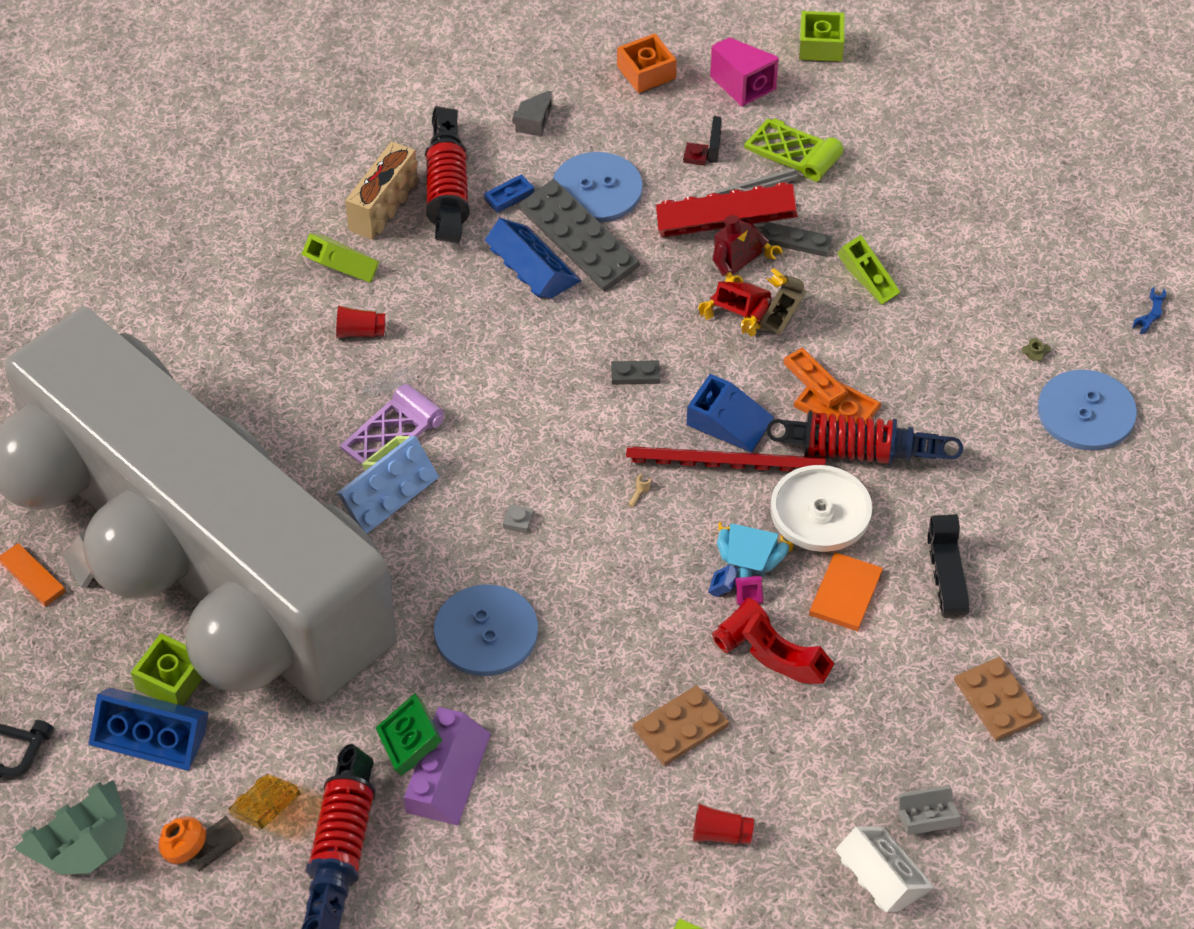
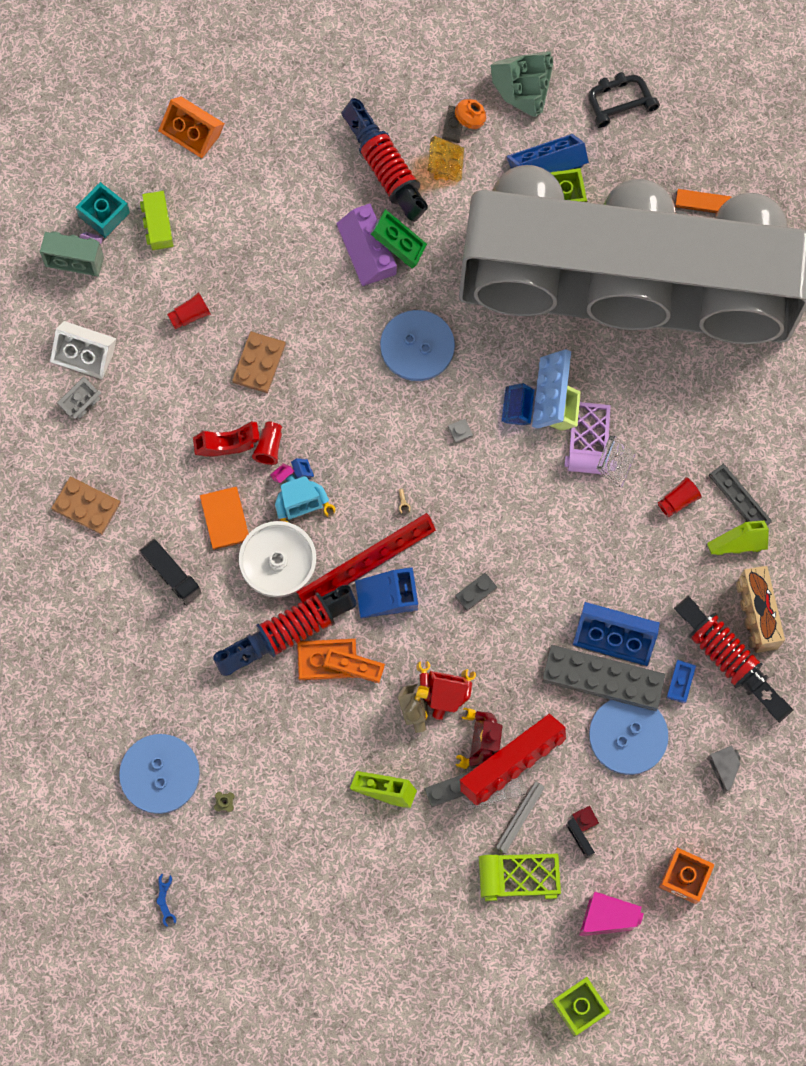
camera: 140 degrees right, 20 degrees up
(299, 296) = (738, 495): none -> dark grey tile
(435, 502) = (518, 404): none -> clear blue brick

